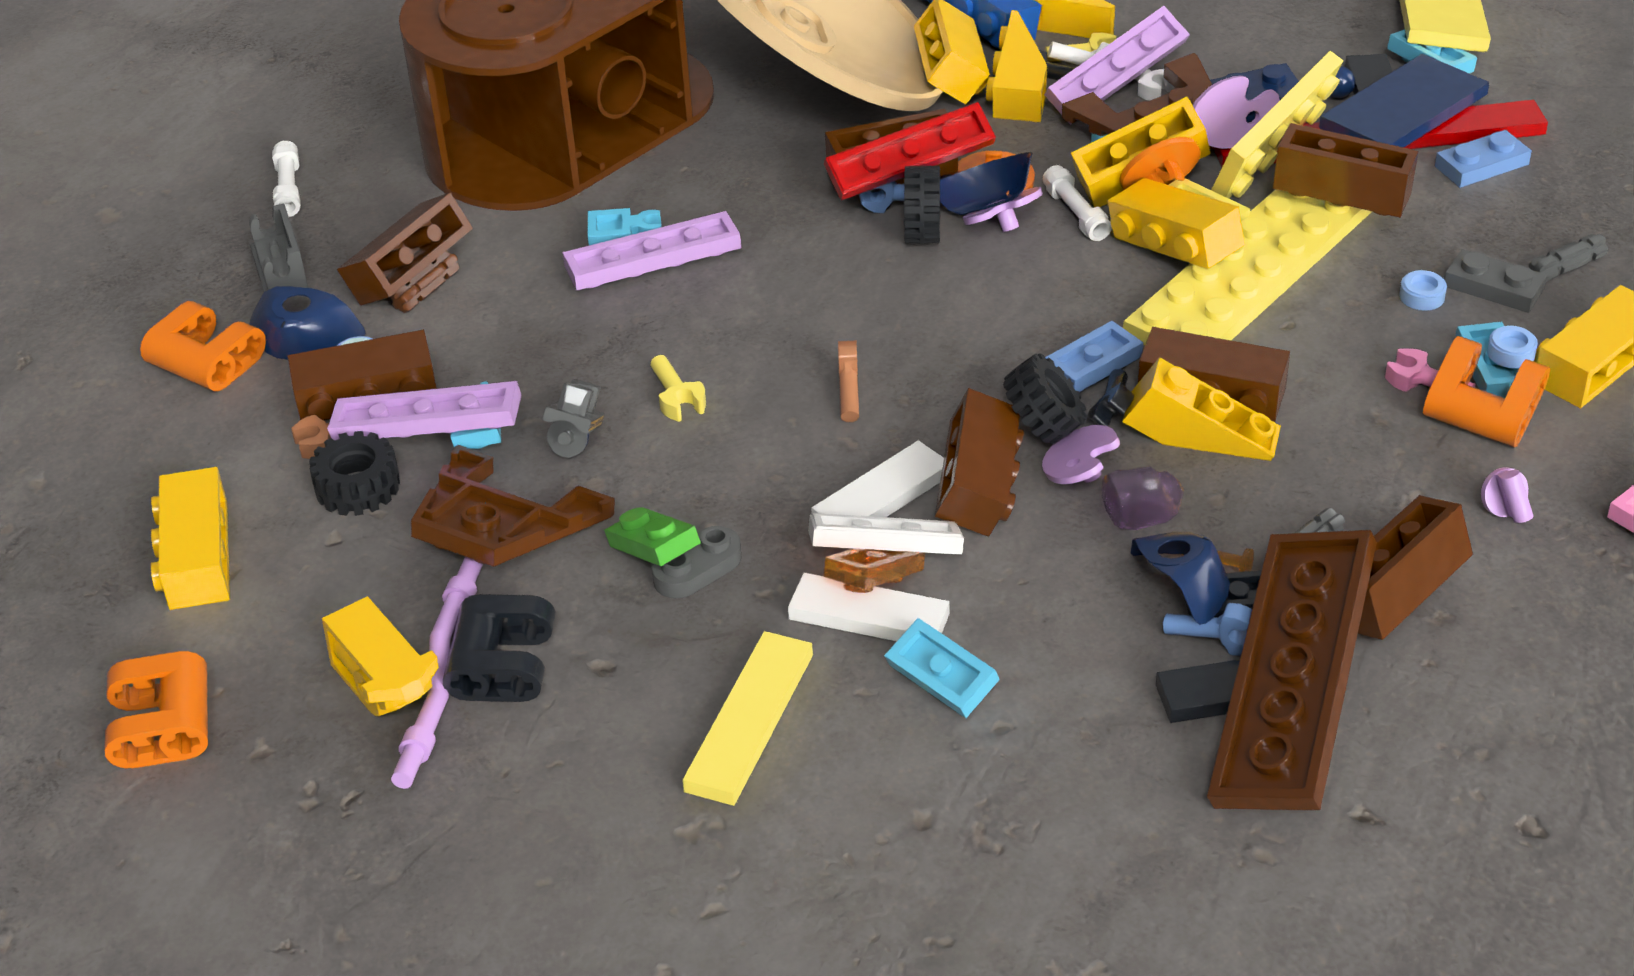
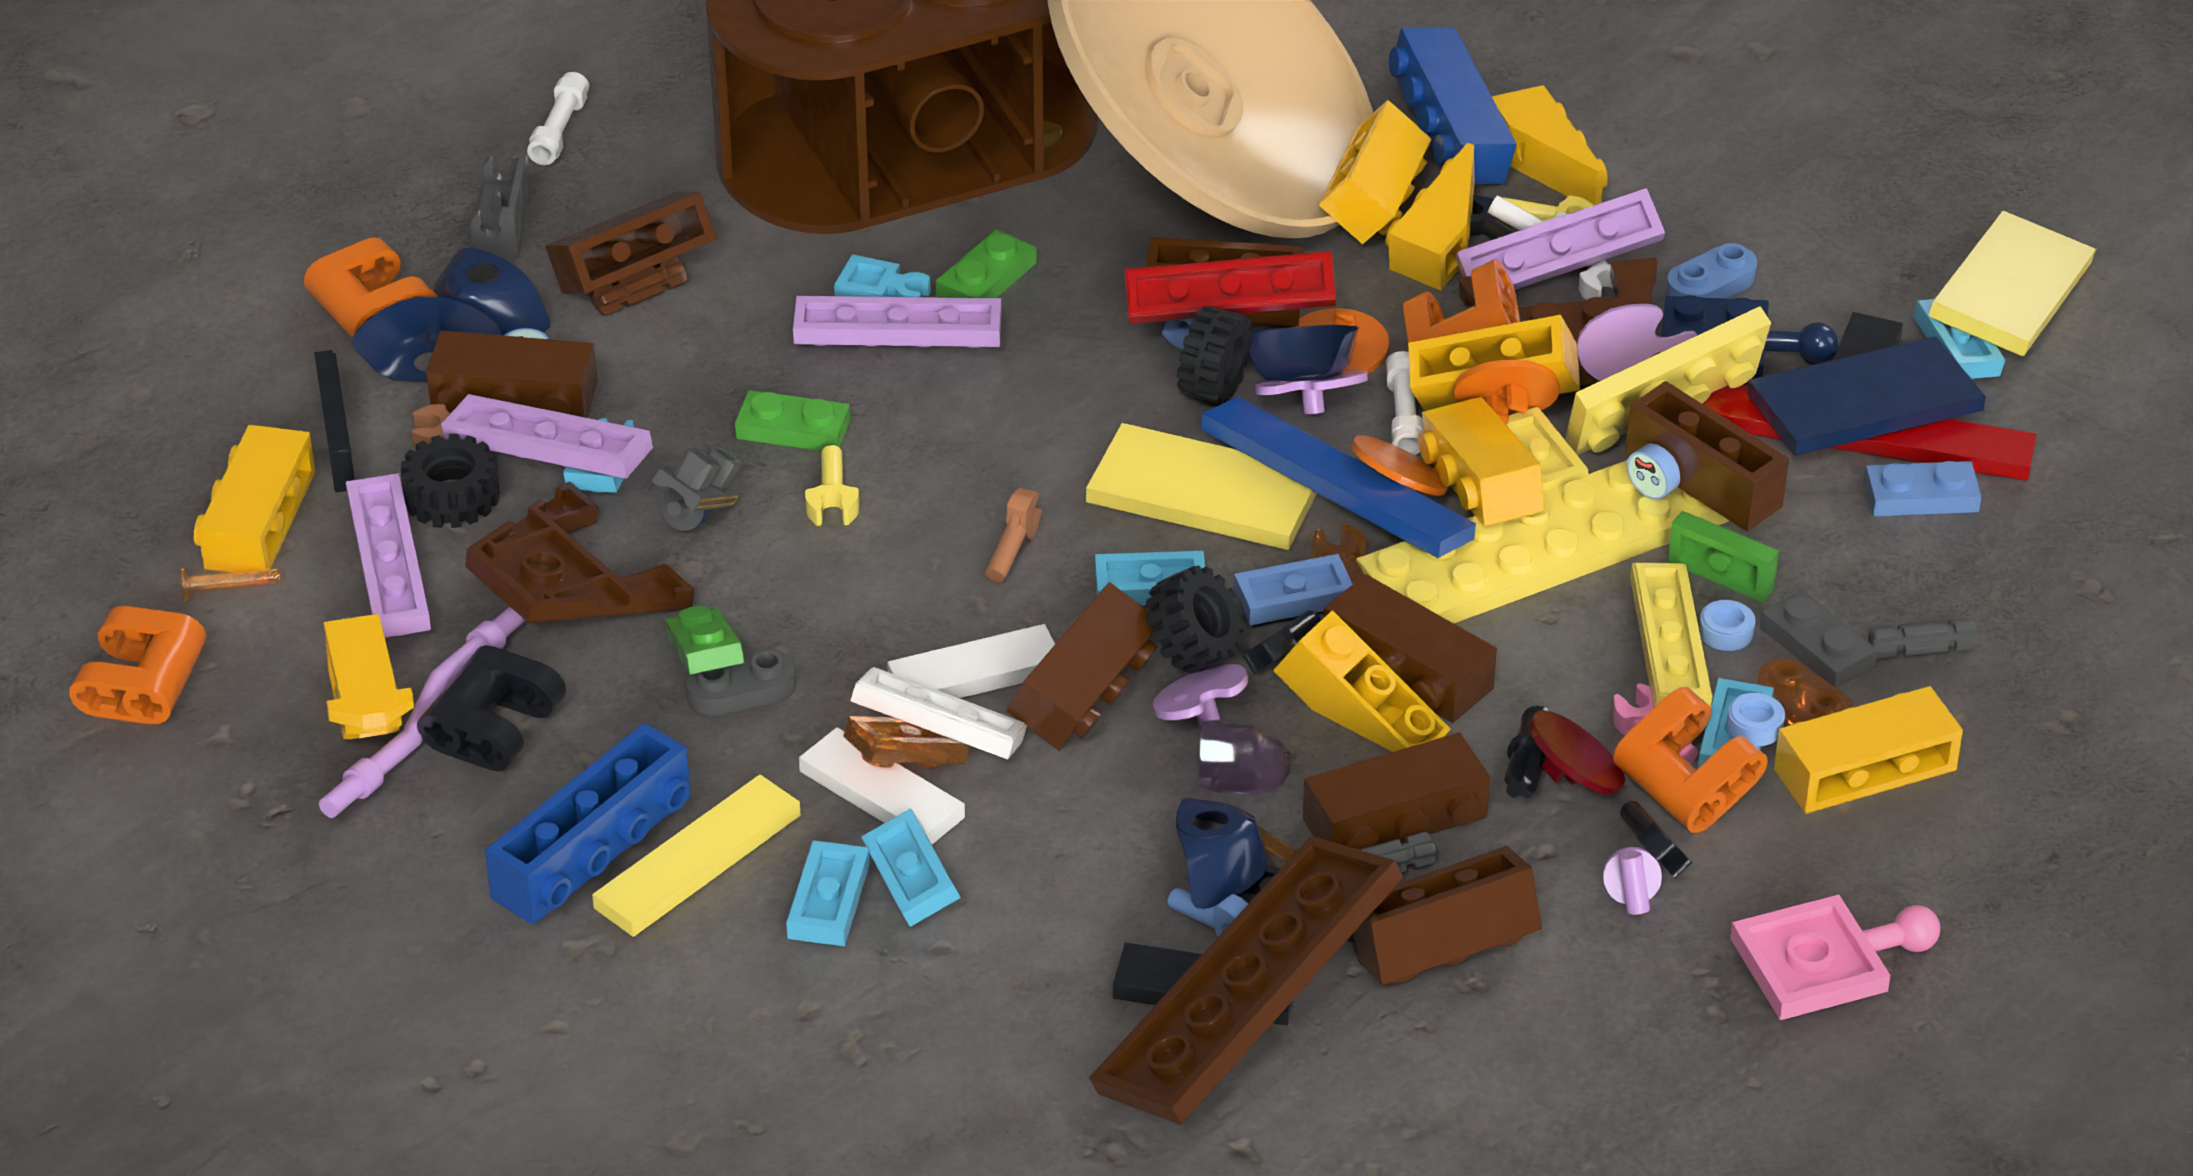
camera: 20 degrees right, 0 degrees up
(164, 626) = (226, 580): none -> clear orange pin
(228, 454) = (334, 419): none -> black tile
(244, 372) = (400, 333): none -> dark blue piece
(333, 546) = (388, 554): none -> lavender plate
(611, 347) = (792, 420): none -> bright green plate
(650, 720) = (588, 823): none -> blue brick
(695, 194) = (988, 268): none -> bright green plate
(885, 712) = (828, 893): none -> medium azure plate
(968, 303) = (1199, 487): none -> light yellow tile
(980, 374) = (1139, 572): none -> medium azure plate
(1074, 265) = (1338, 477): none -> blue tile
(1103, 244) = (1398, 465): none -> orange piece
(1104, 312) = (1352, 547): none -> clear orange bar
(1112, 117) = (1493, 307): none -> orange connector
(1230, 55) = (1715, 273): none -> medium blue plate
(1287, 488) = (1398, 794): none -> reddish brown brick
(1308, 193) = (1653, 471): none -> tile
(1358, 423) = (1525, 759): none -> black axle
(1390, 241) = (1723, 556): none -> bright green plate
(1393, 308) = (1669, 630): none -> light yellow tile
(1397, 415) = (1574, 754): none -> dark red piece
(1506, 457) = (1654, 838): none -> black bar
(1540, 323) = (1801, 691): none -> clear orange plate

